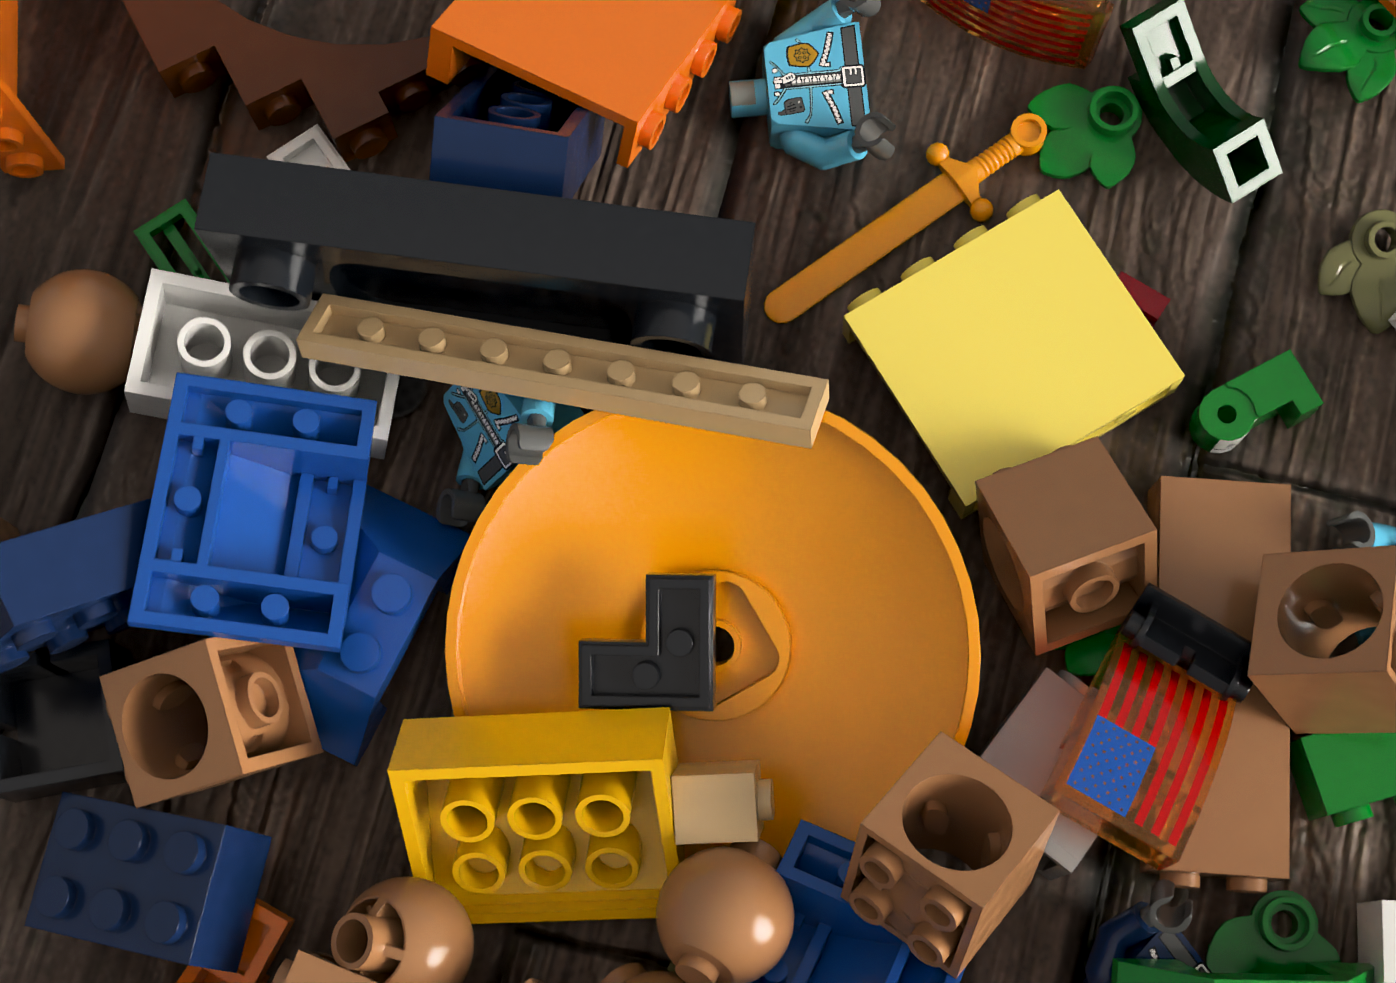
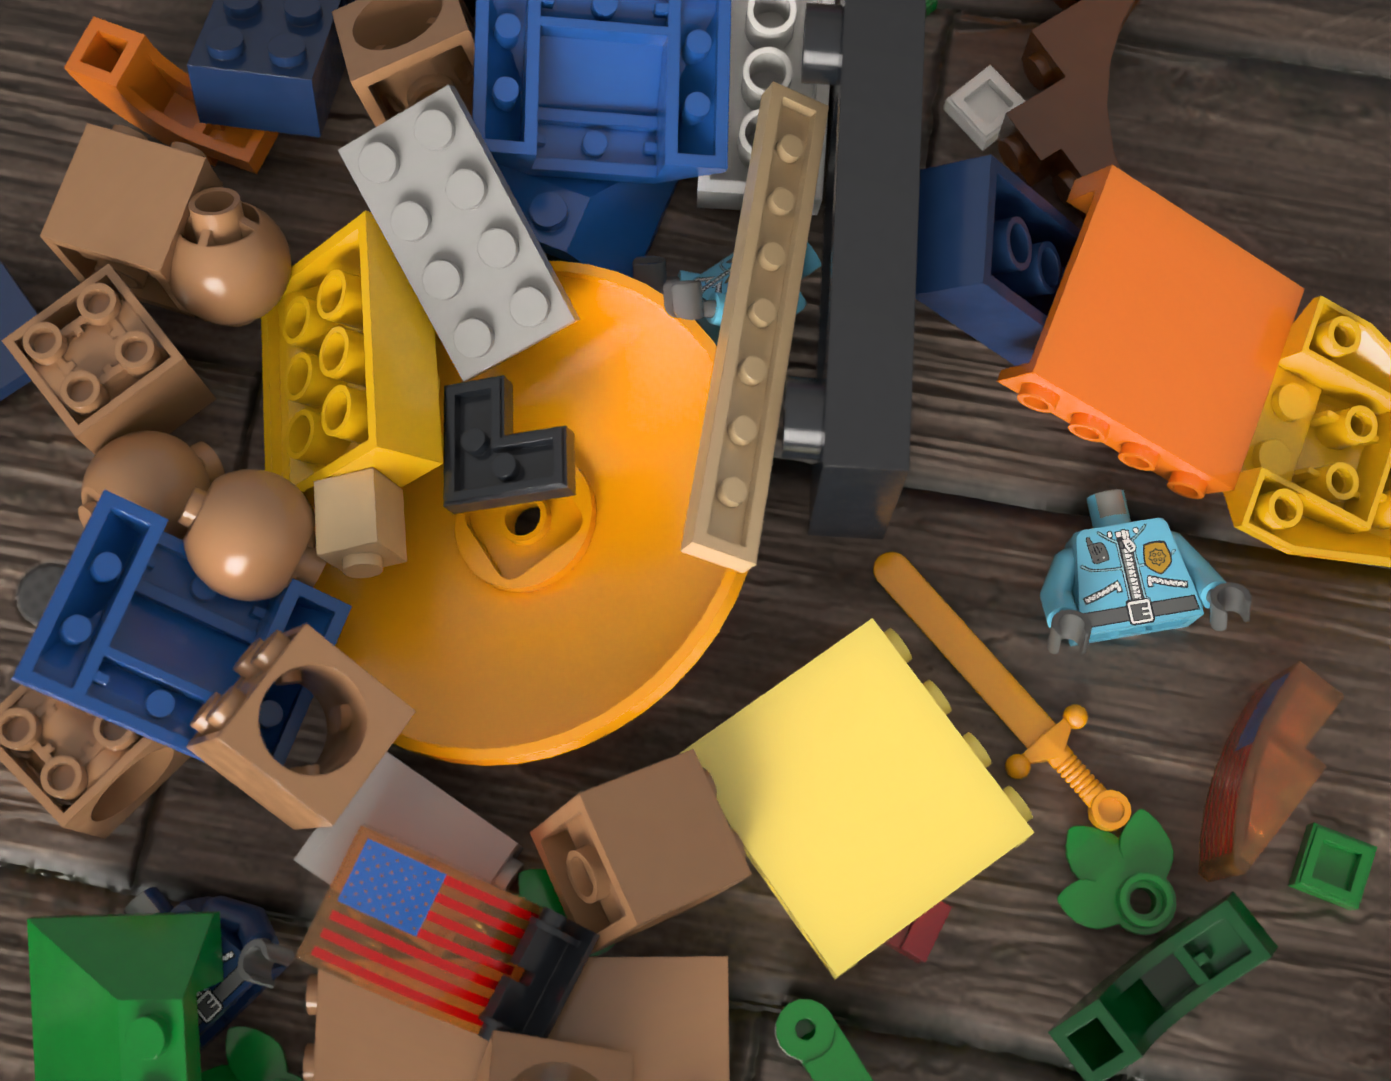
camera: 85 degrees right, 0 degrees up
(424, 672) = (458, 233): none -> light grey plate

